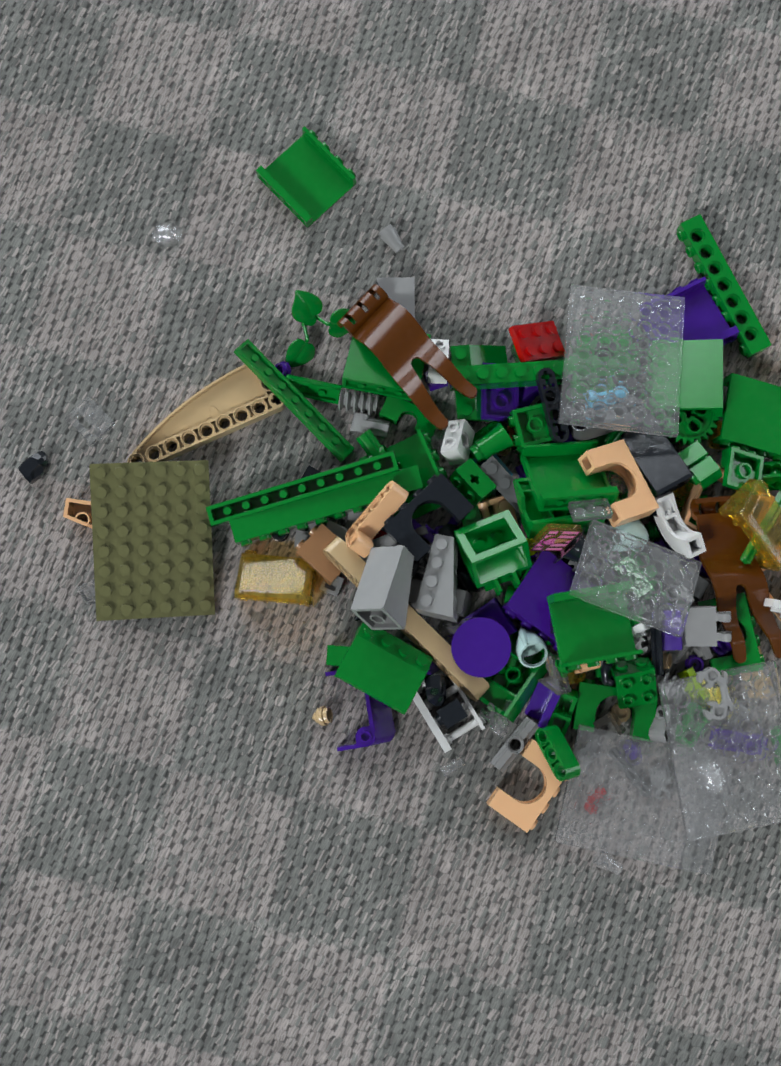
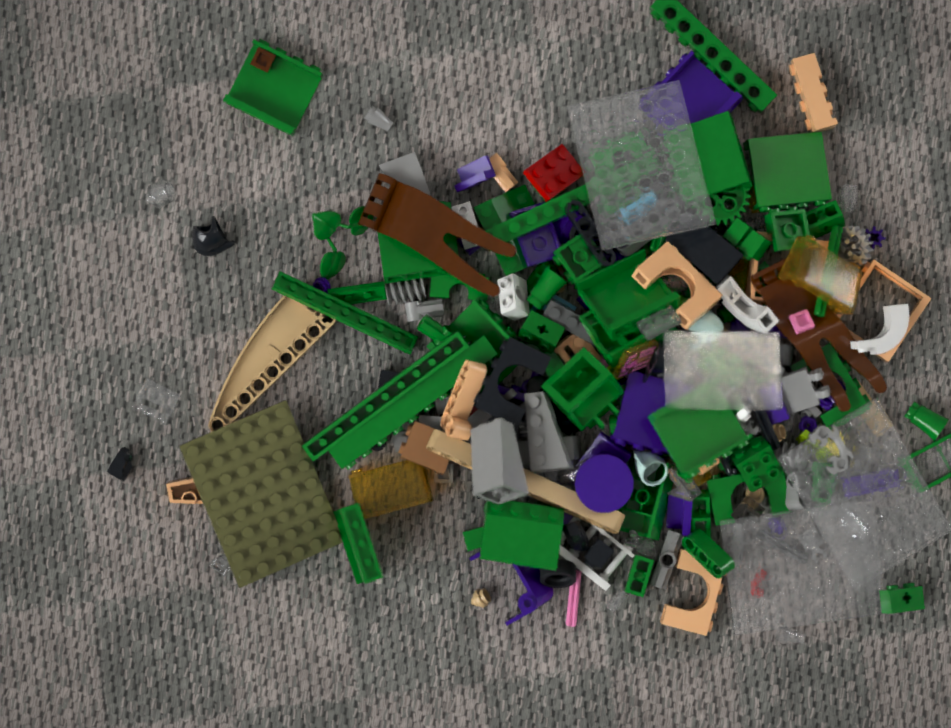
camera: 15 degrees left, 5 degrees up
(196, 292) = (210, 239): none -> black piece
(223, 618) = (358, 544): none -> green panel
(306, 149) = (263, 60): none -> reddish brown plate
(407, 723) = (562, 577): none -> black tyre
(411, 748) = (573, 600): none -> bright pink axle
(462, 318) = (474, 173): none -> panel
(482, 749) = (638, 575): none -> green brick
(485, 323) = (503, 175): none -> light nougat piece
(726, 561) = (801, 321): none -> bright pink tile
(730, 867) = (901, 599): none -> green brick

